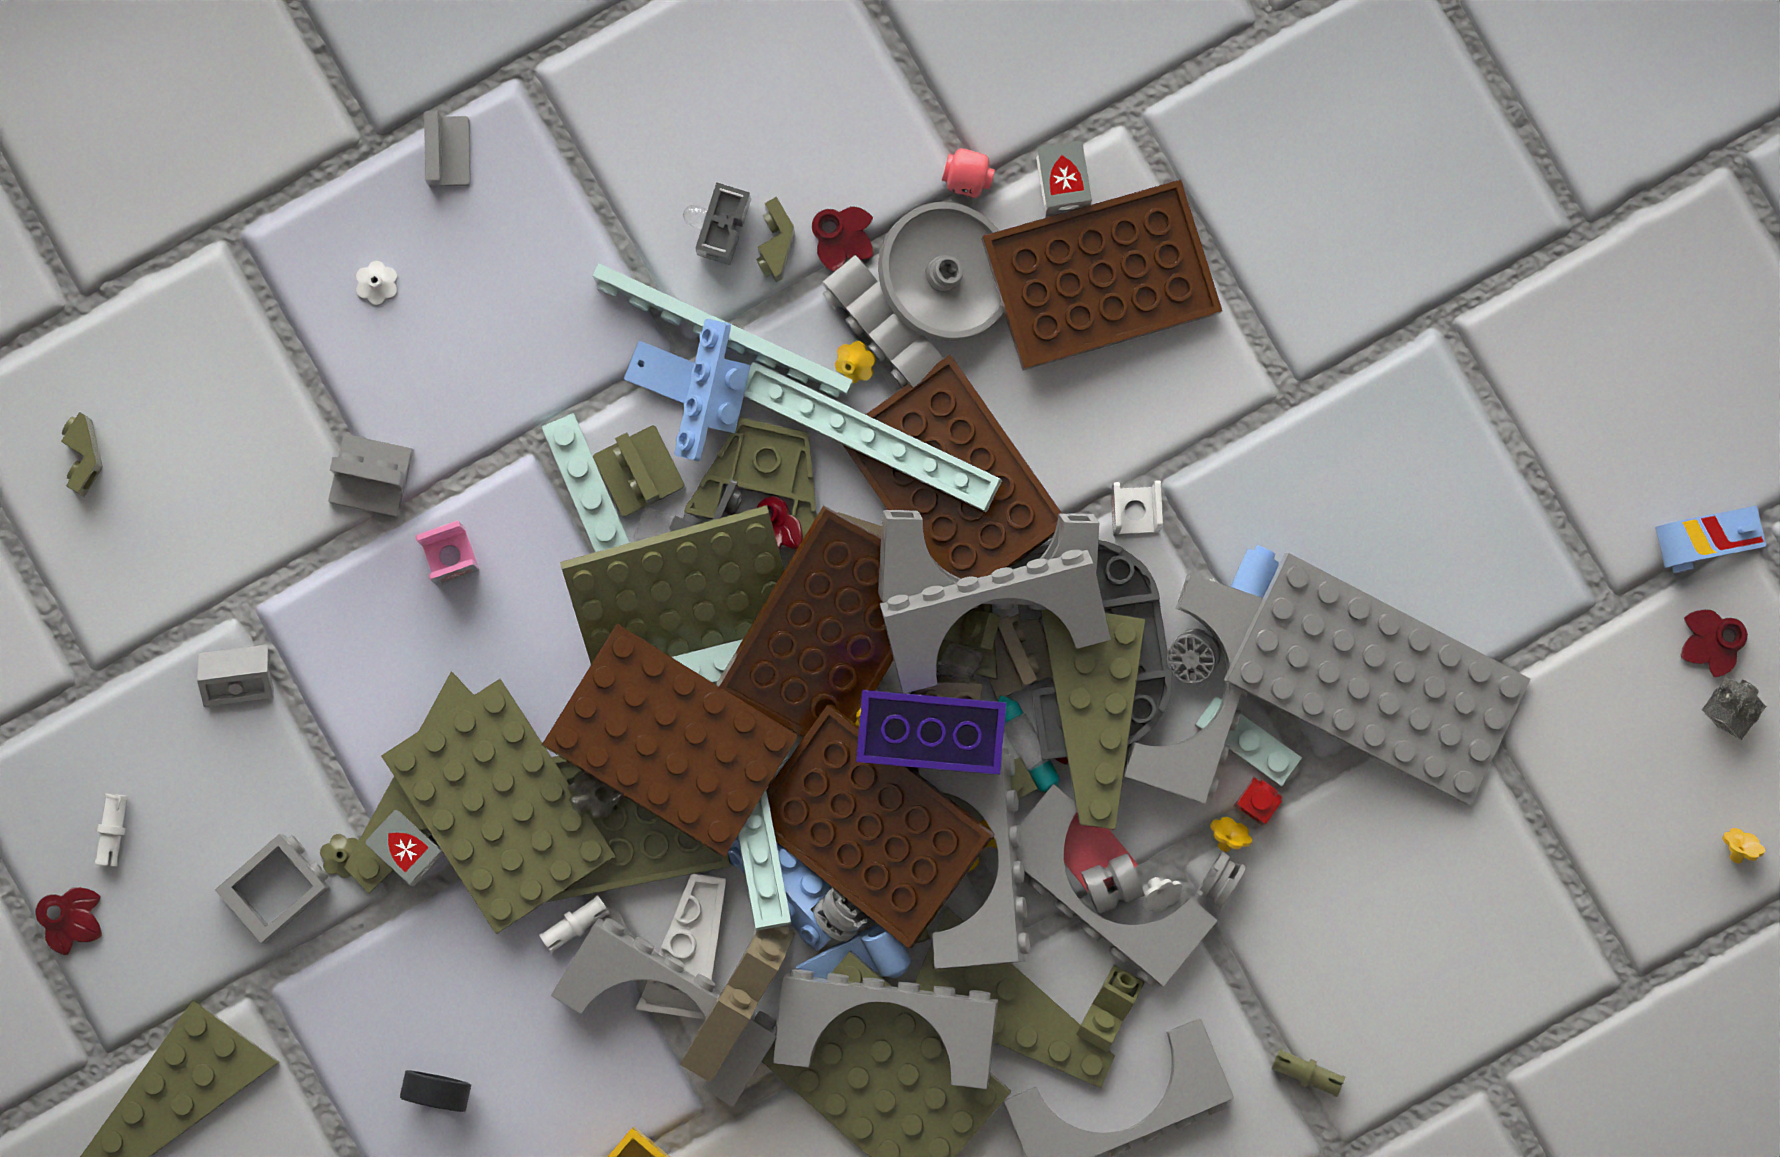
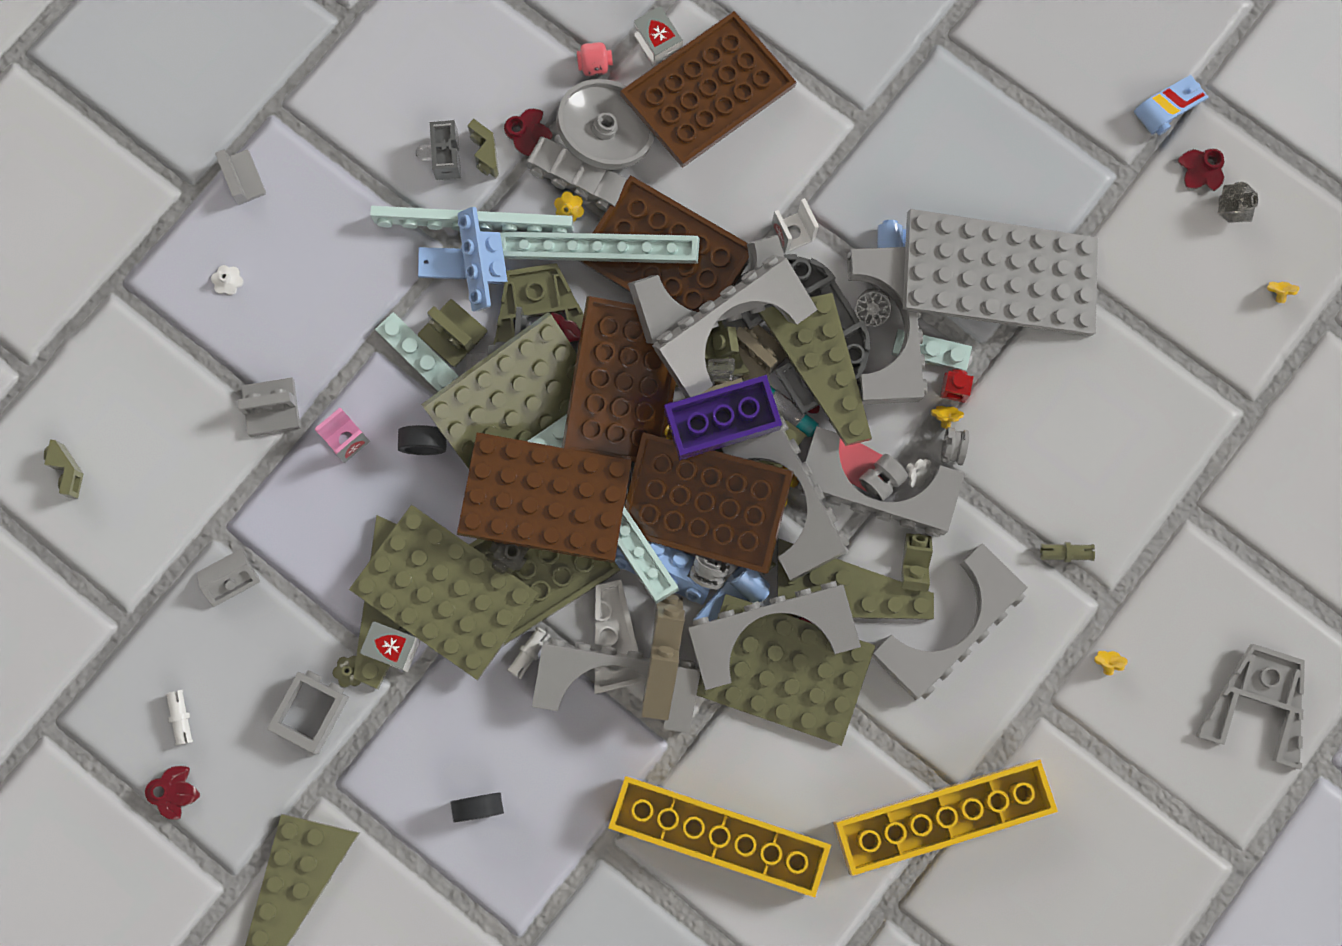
camera: 25 degrees left, 5 degrees down
(543, 600) = (421, 440): none -> black tyre

